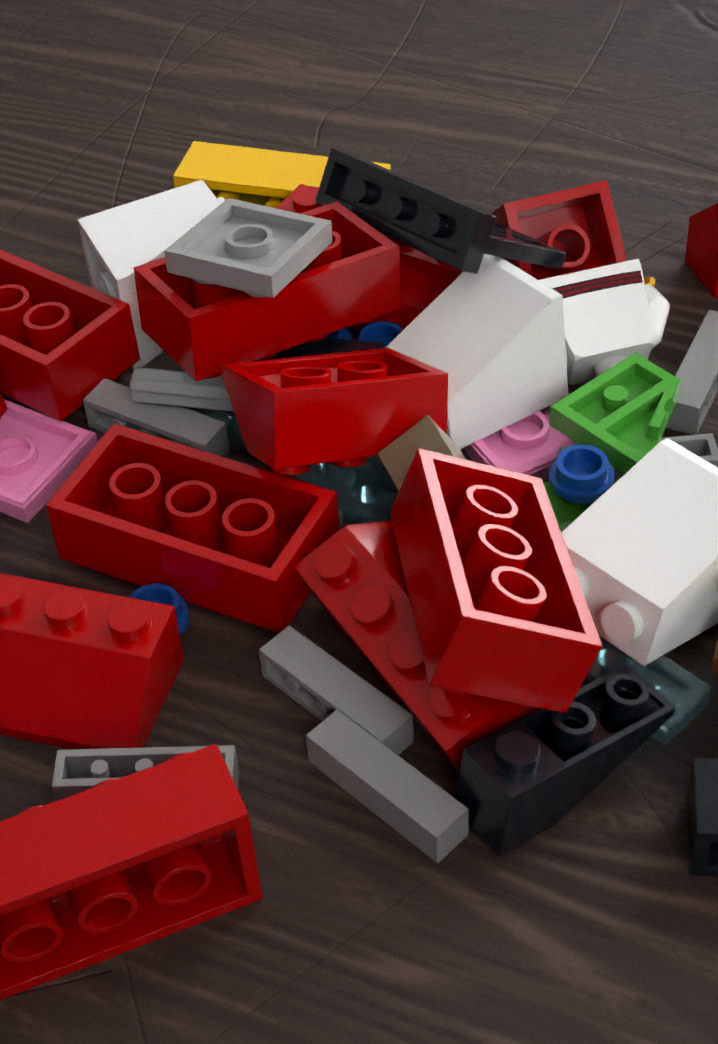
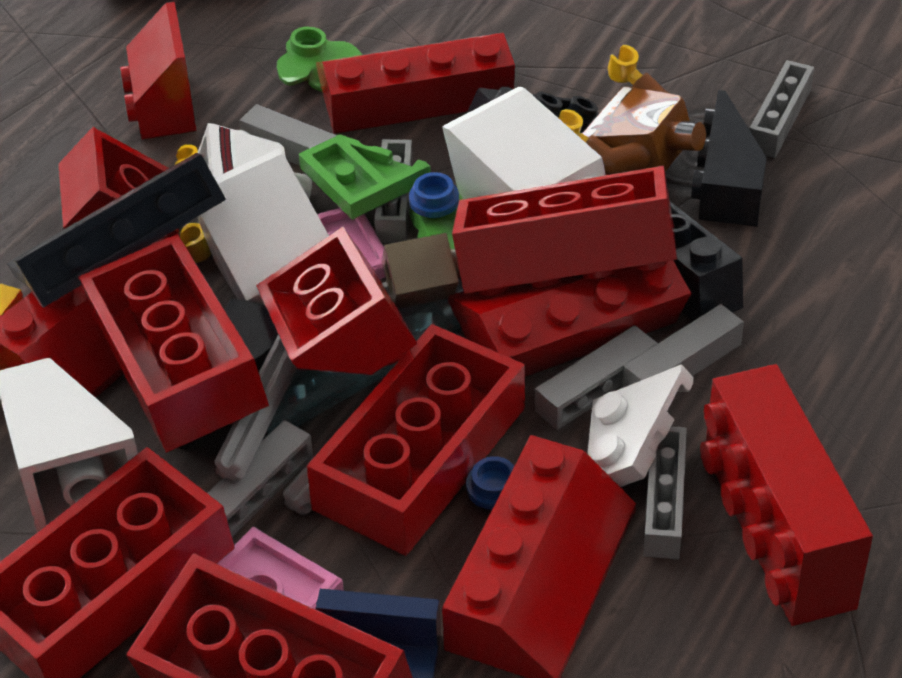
camera: 85 degrees left, 0 degrees up
(196, 721) = (632, 424): none -> white wing
(249, 247) = (173, 308): light grey plate -> none

